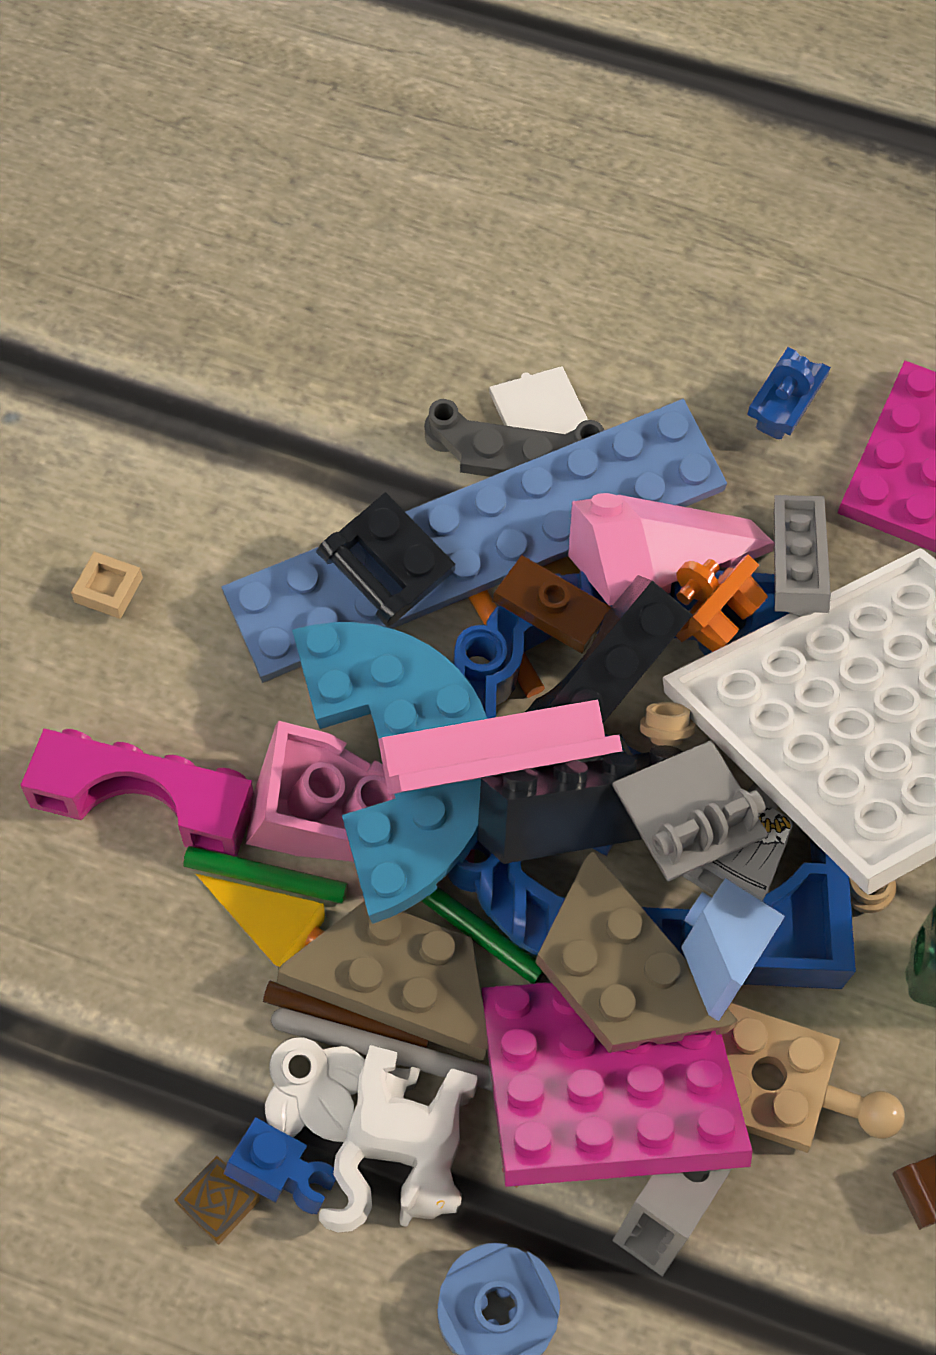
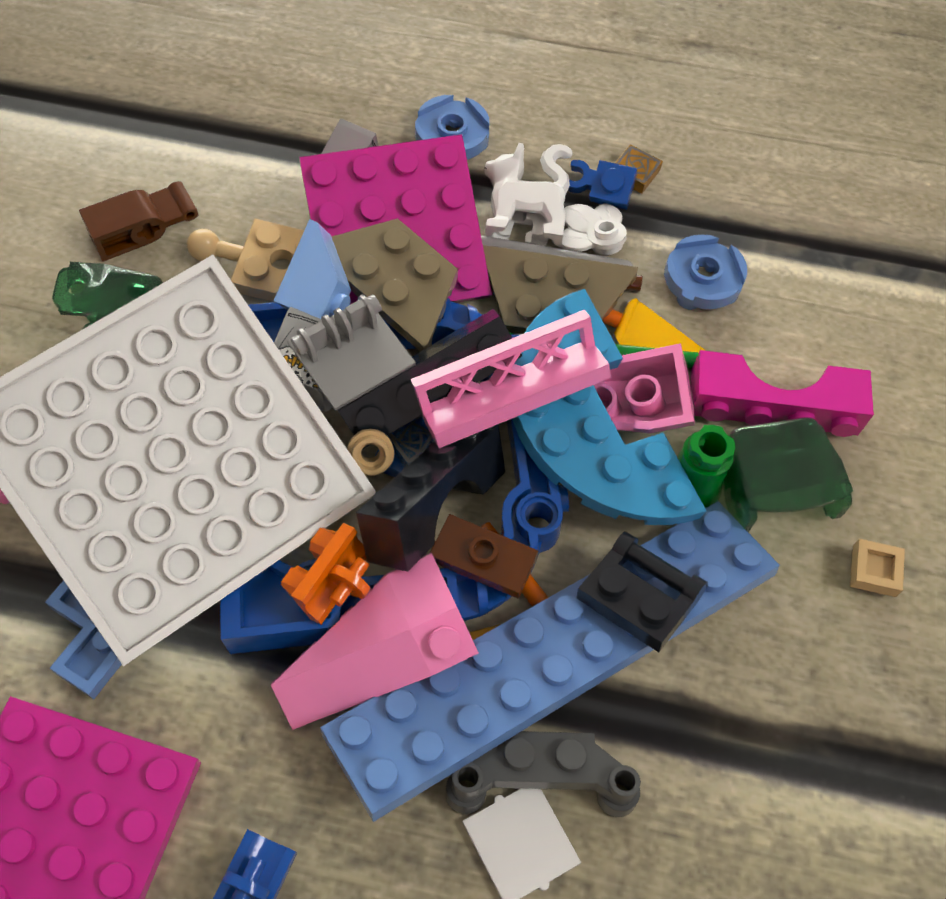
camera: 170 degrees right, 0 degrees up
(149, 968) = (699, 290): none -> medium blue plate
(180, 684) = (785, 470): none -> clear green piece
(275, 694) = (706, 461): none -> green plant
(801, 555) = (245, 656): light grey plate -> none

